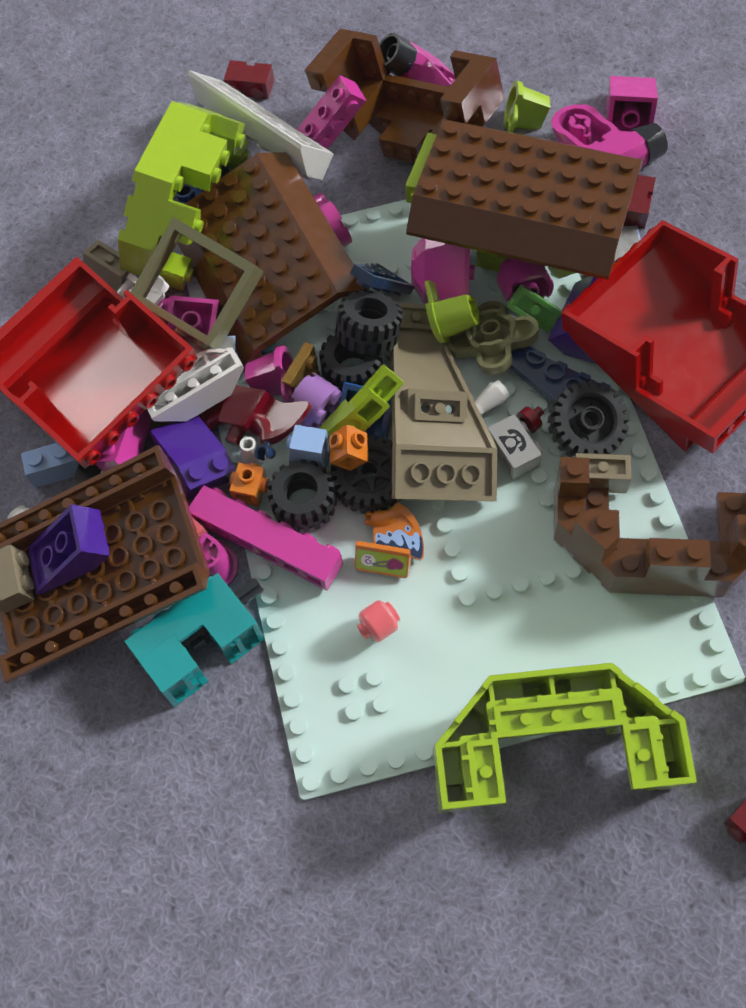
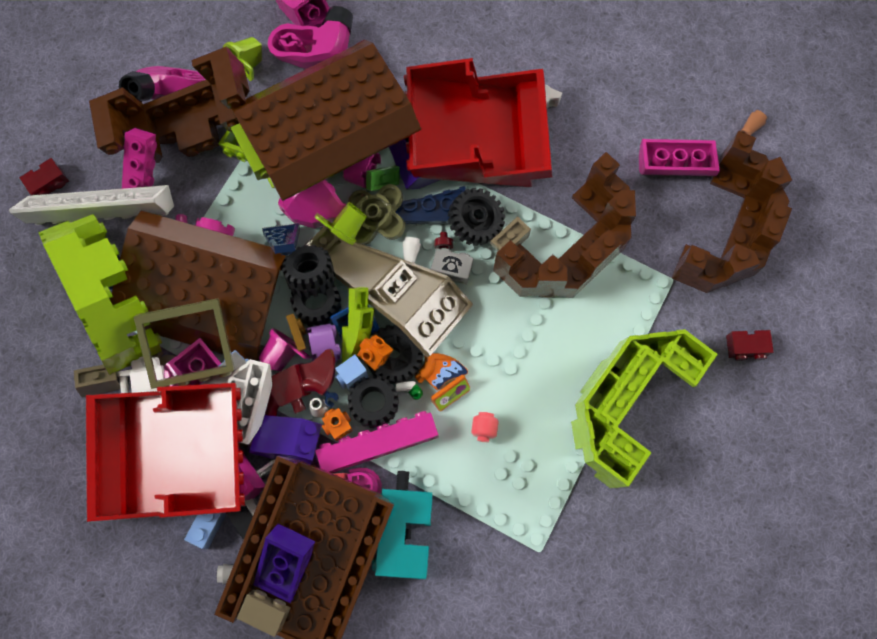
camera: 55 degrees left, 10 degrees up
(352, 521) = (411, 387): none -> arm

